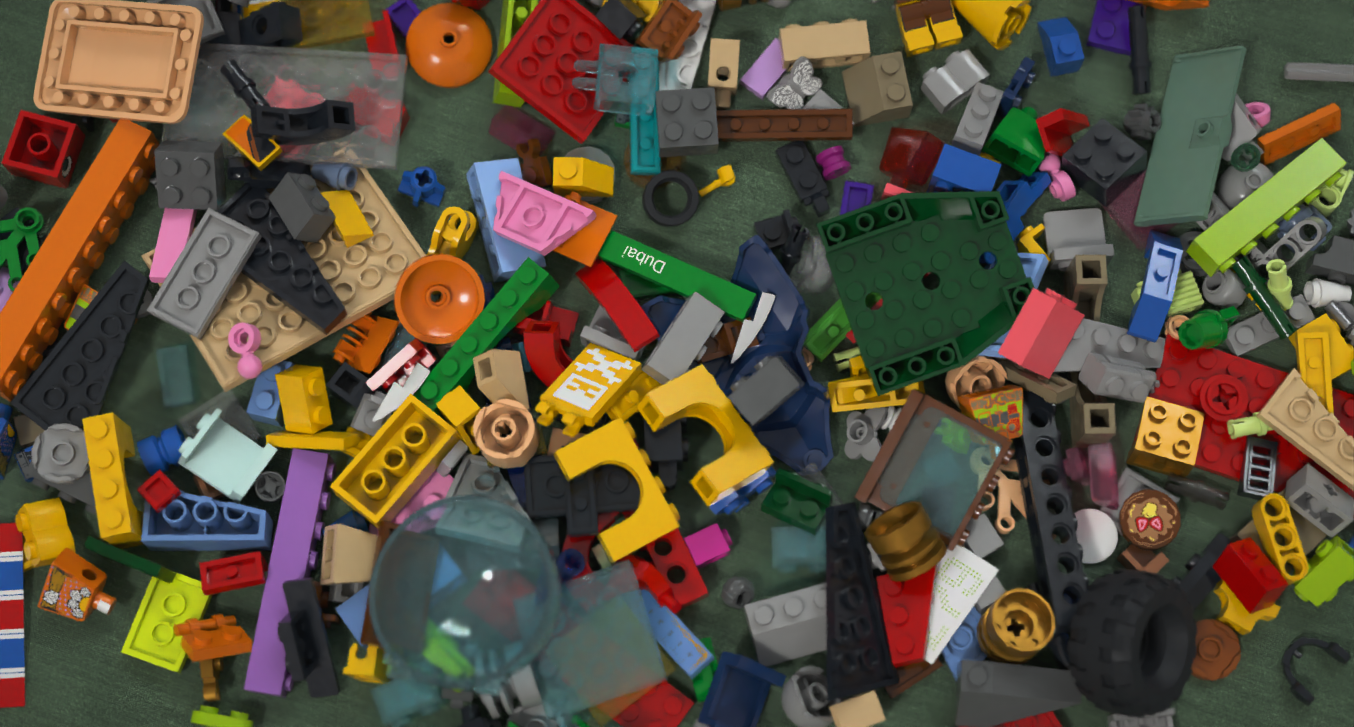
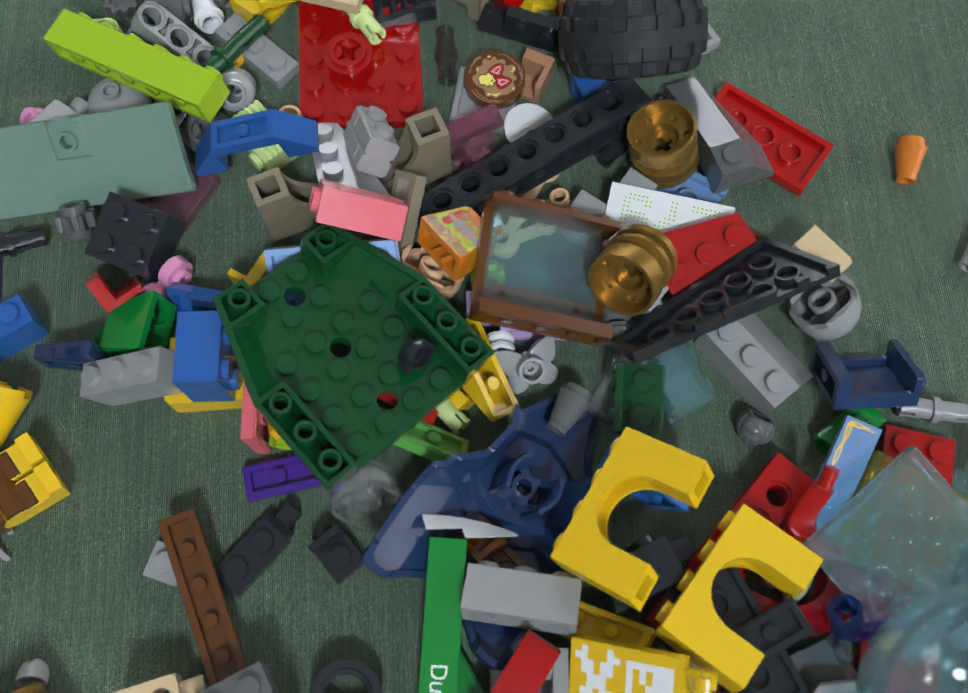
camera: 115 degrees left, 5 degrees down
(708, 545) = (730, 478): dark pink brick -> none
(726, 178) = (293, 641): yellow hand -> none
(765, 71) = (134, 648): lavender tile -> none
(766, 389) = (555, 463): dark grey brick -> none
(790, 252) = (358, 522): black pin -> none
(795, 86) = (147, 604): light grey animal -> none
(813, 444) = (568, 408): none -> dark grey cone
(825, 44) = (83, 593): tan brick -> none
(833, 162) = (230, 521): magenta wheel -> none
(878, 89) = (120, 506): dark tan slope -> none
(900, 334) = (416, 355): none -> black piece
(910, 156) = (196, 435): clear red torso -> none
(953, 81) = (85, 426): light grey brick -> none
(1074, 234) = (231, 238): light grey bracket -> none
(1166, 438) = (406, 86): bracket -> none
(1207, 328) = (284, 83): green piece -> none
(1249, 150) = (86, 94): clear green bush -> none
(1279, 283) = (211, 33): yellowish green pin -> none
(1300, 133) = (40, 76): orange plate -> none

